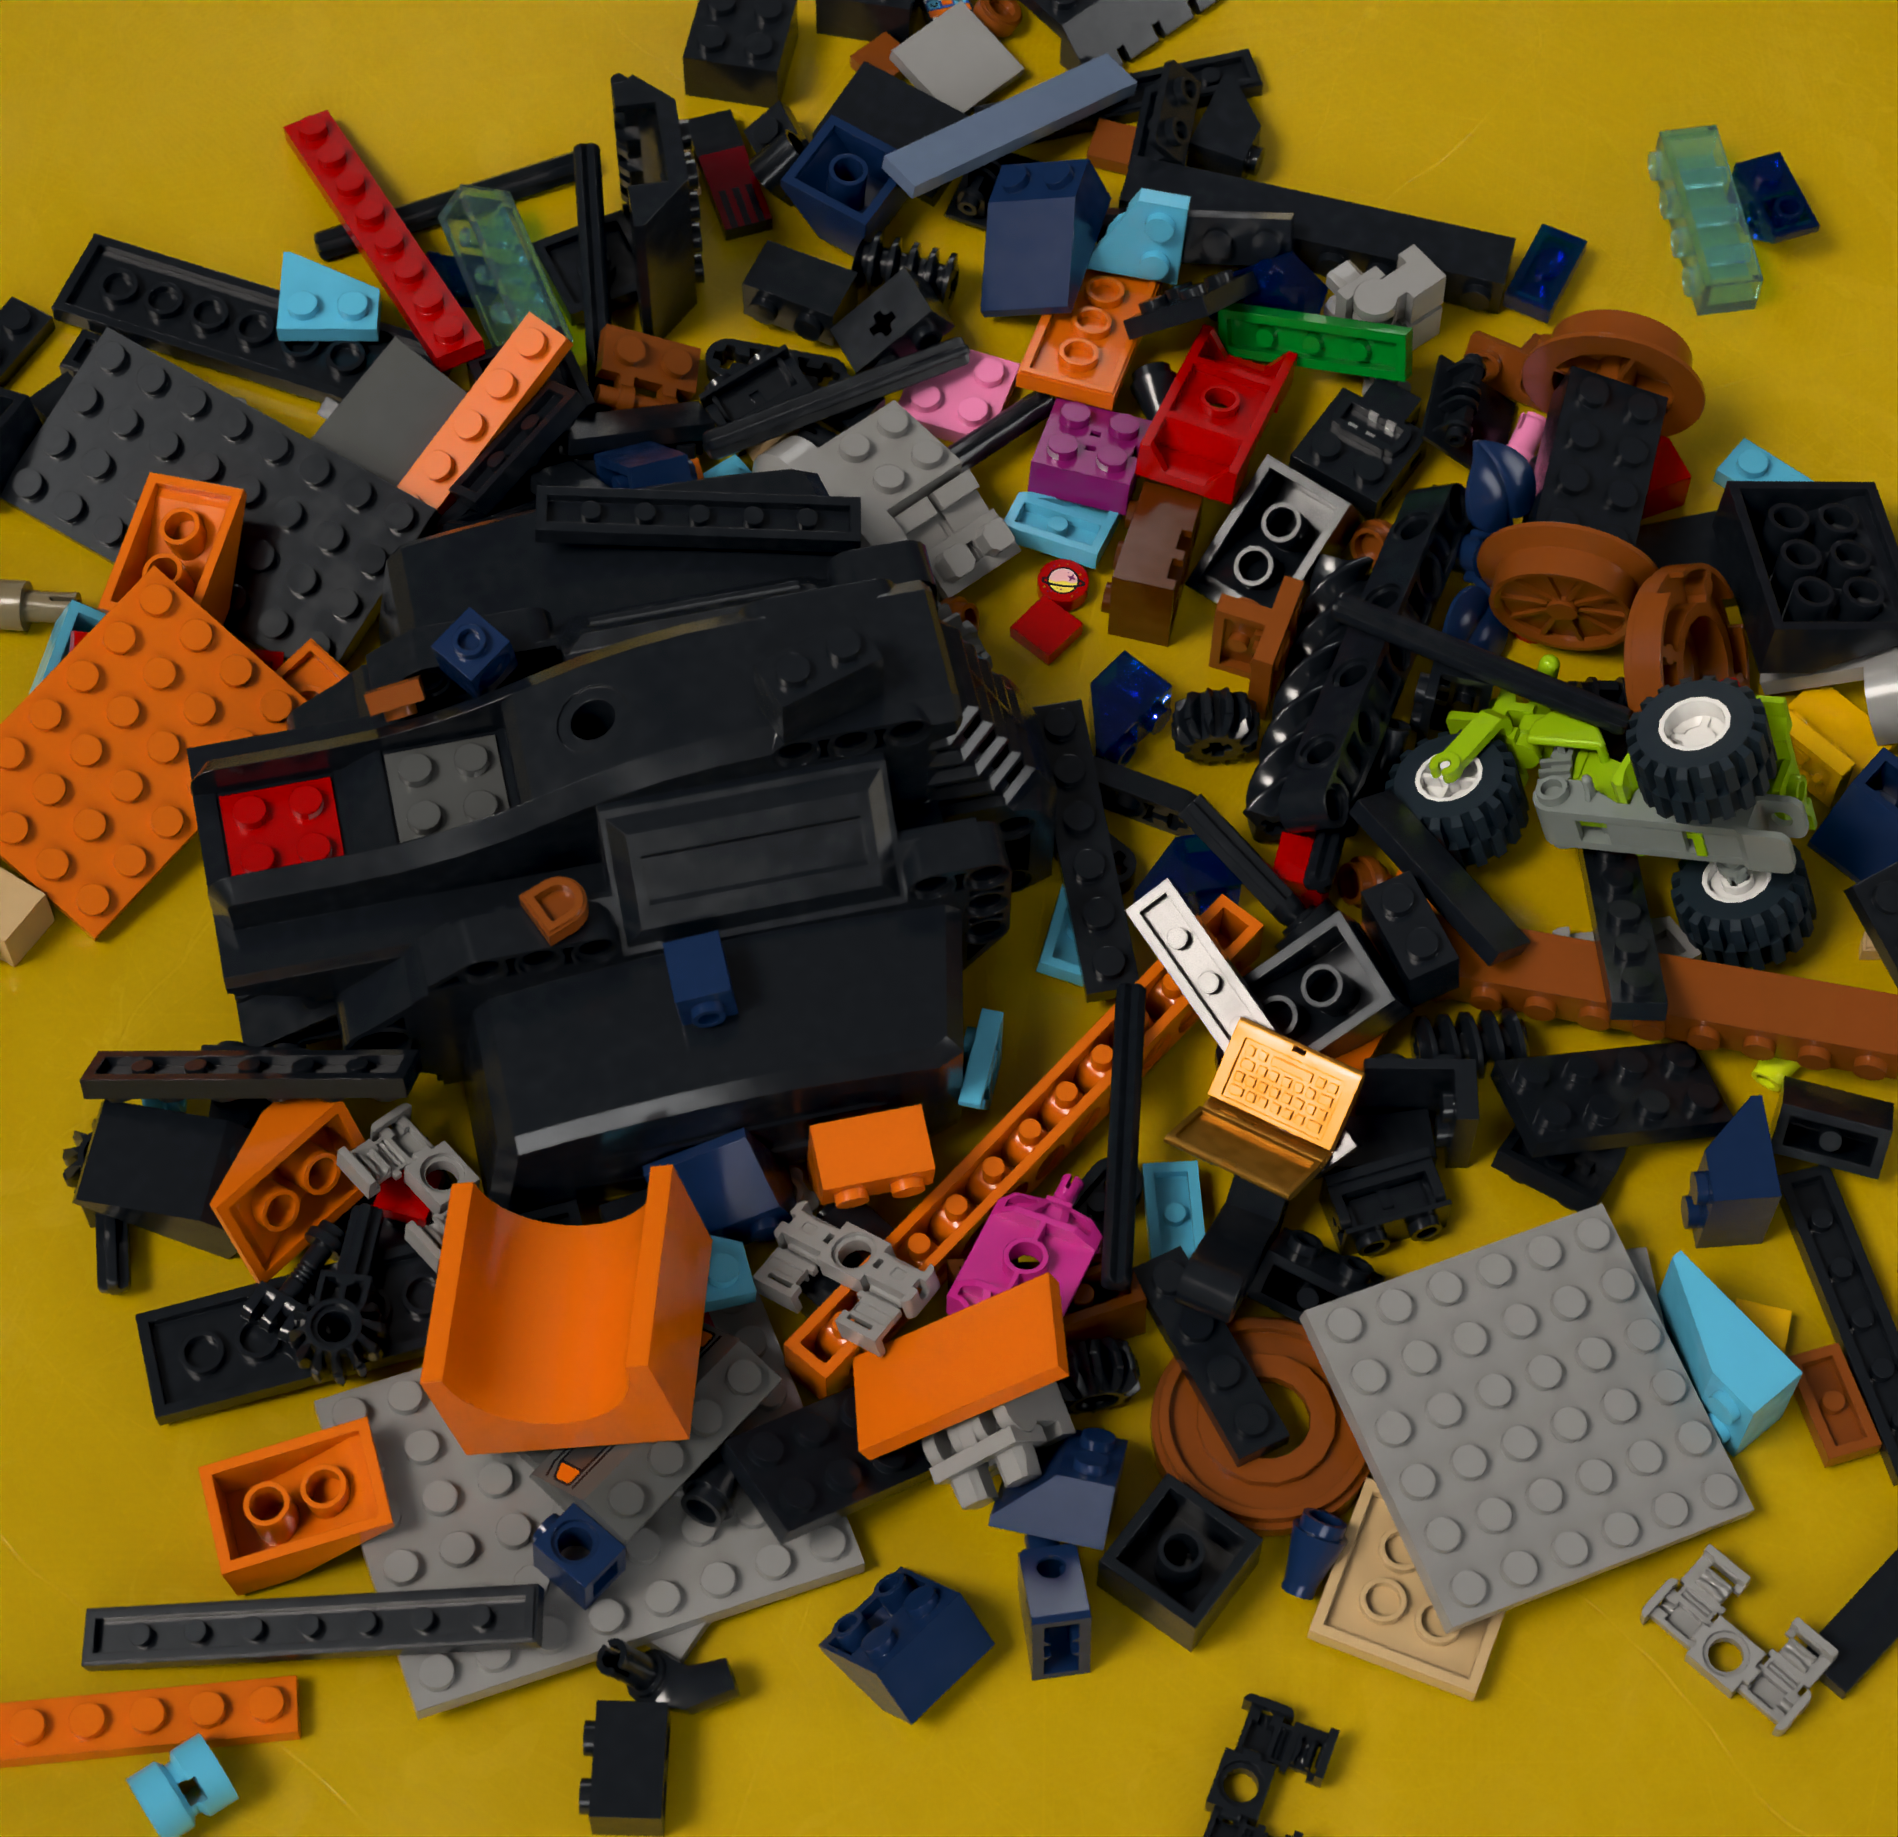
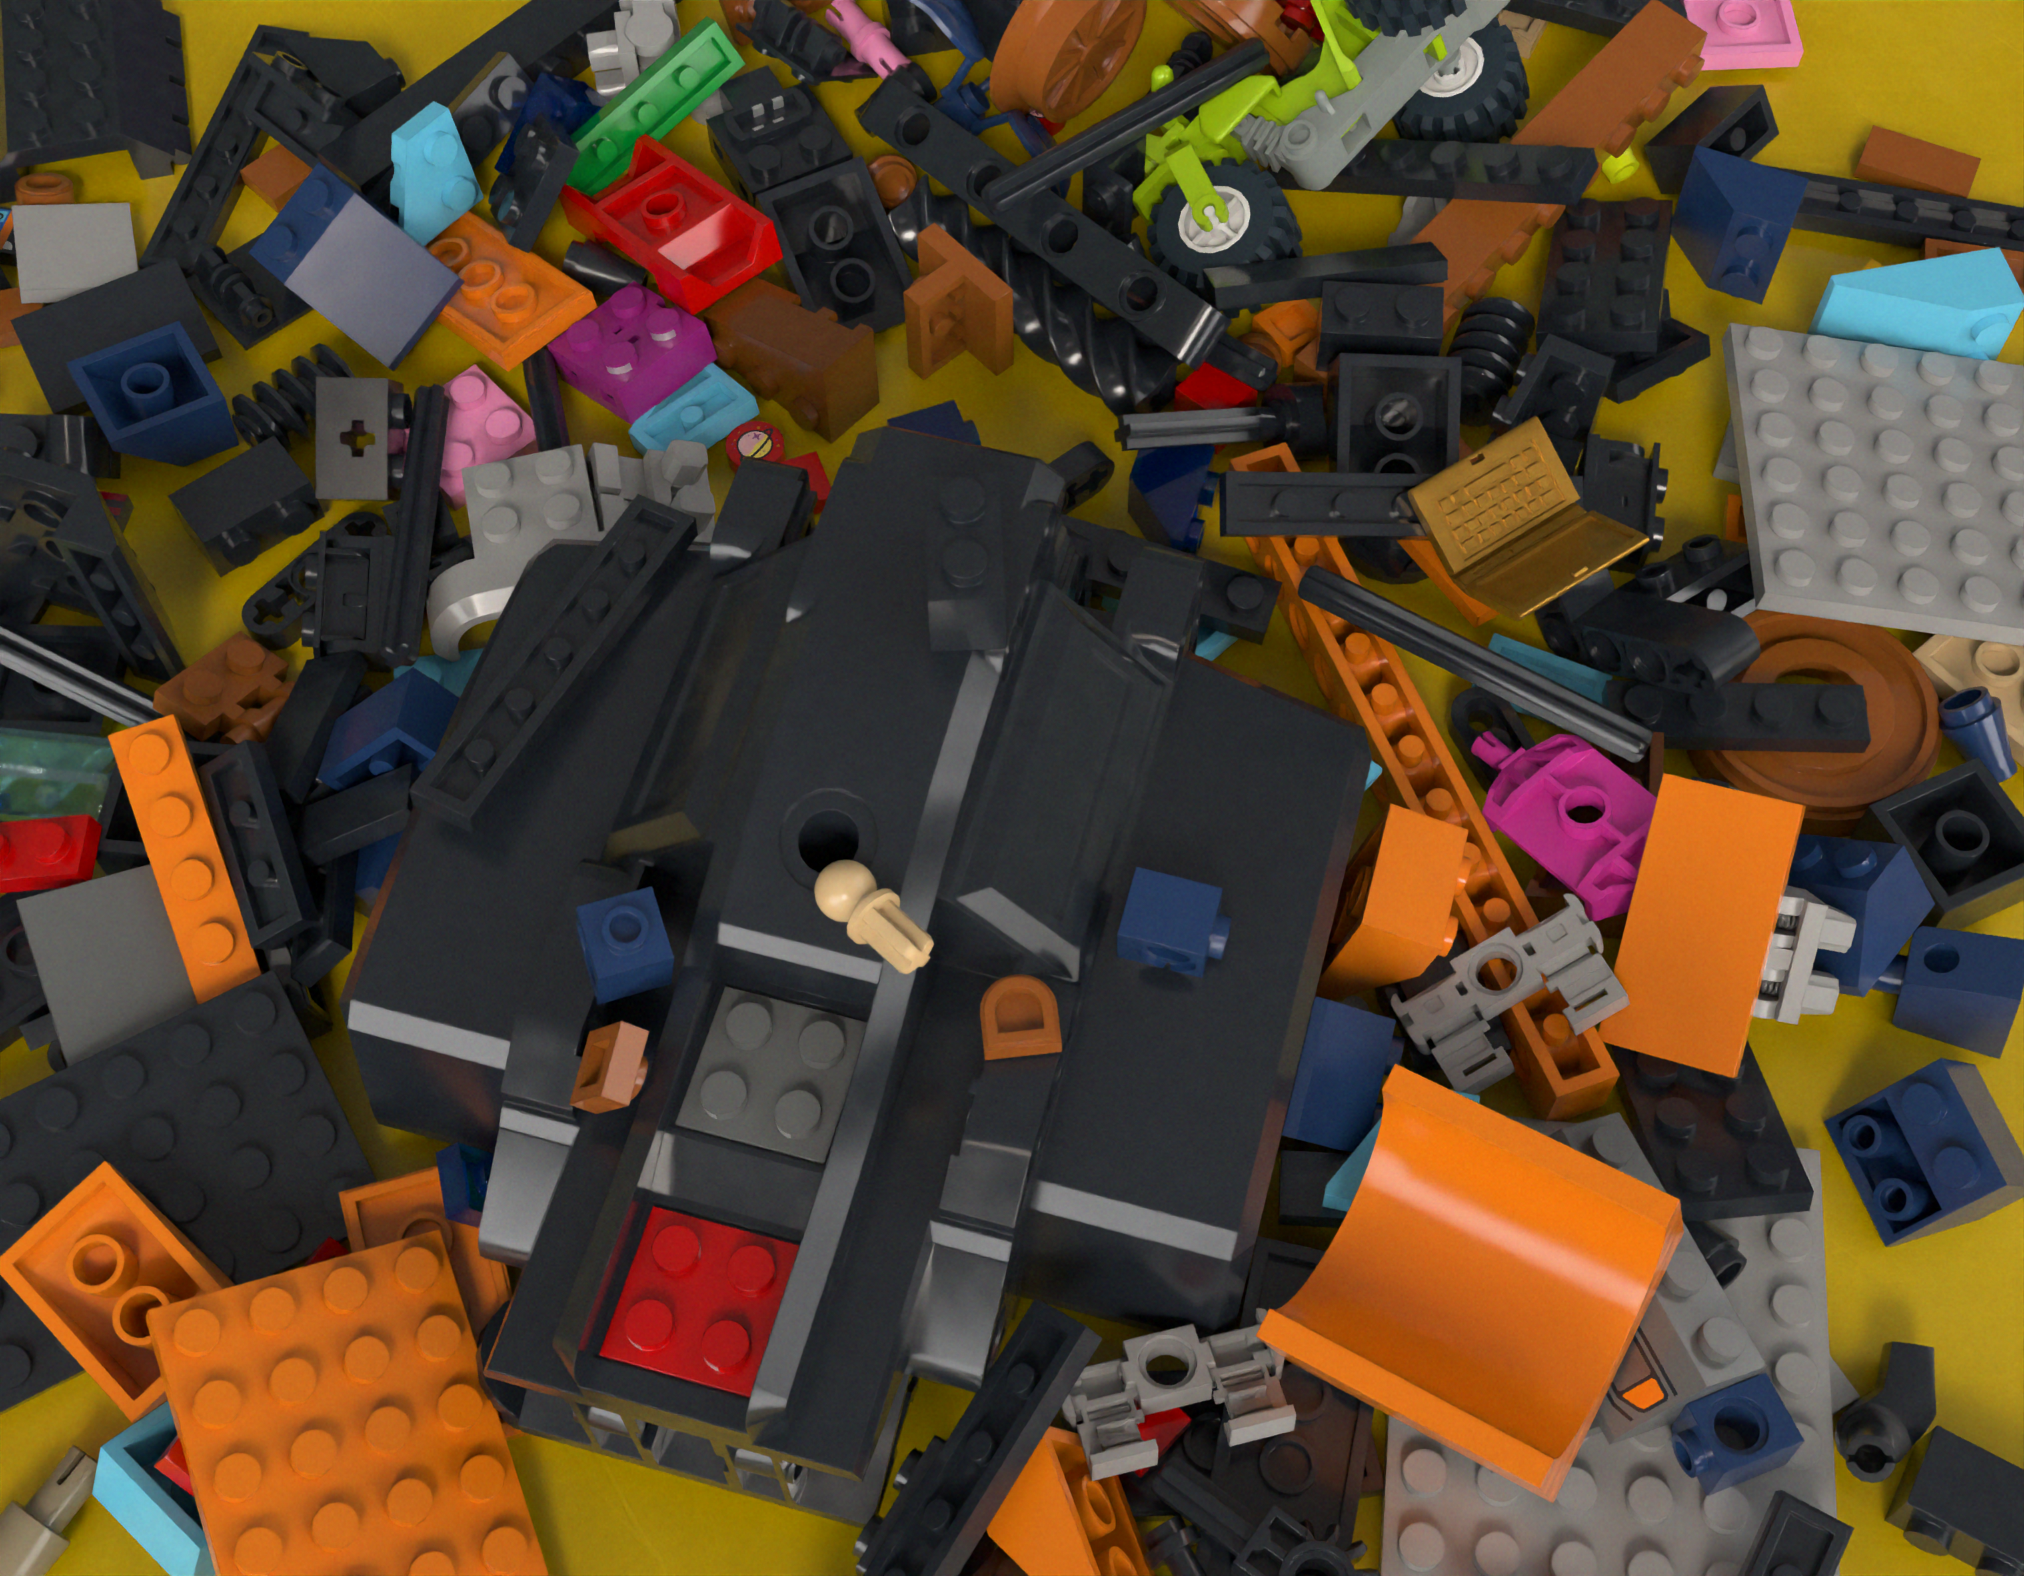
camera: 60 degrees left, 0 degrees up
(548, 768) = (850, 894): none -> tan axle
(1008, 125) = (201, 233): sand blue tile -> none
(1215, 725) = (1017, 389): black gear -> none

